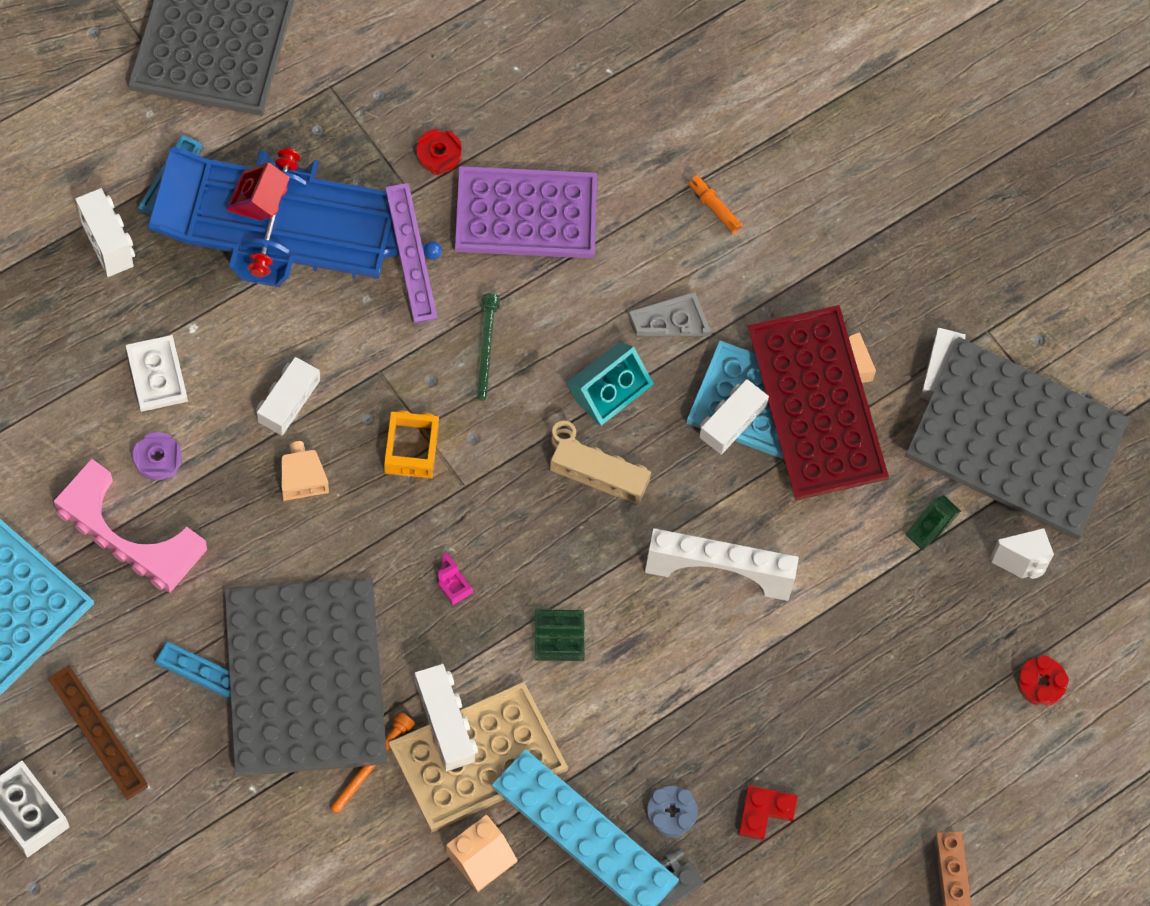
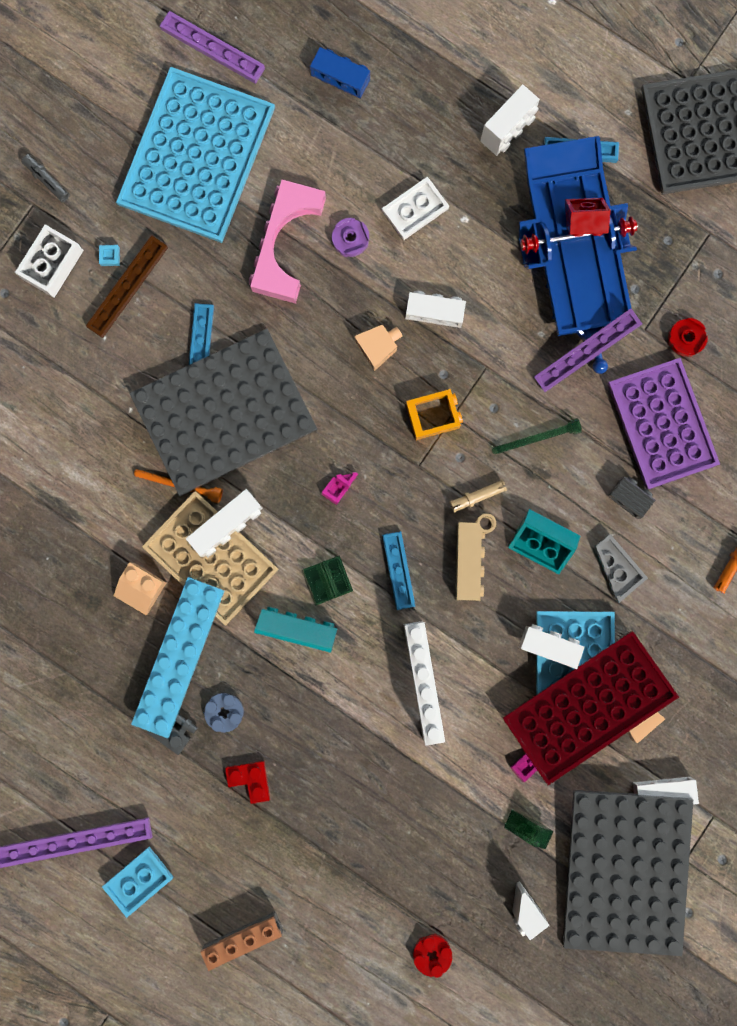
camera: 75 degrees right, 20 degrees up
(48, 739) = (109, 255): none -> medium azure plate
(528, 442) = (477, 496): none -> tan pin
(579, 552) = (398, 570): none -> dark azure tile
(597, 274) = (631, 497): none -> dark grey brick
(606, 686) = (296, 630): none -> teal slope
(861, 501) = (523, 768): none -> dark pink slope

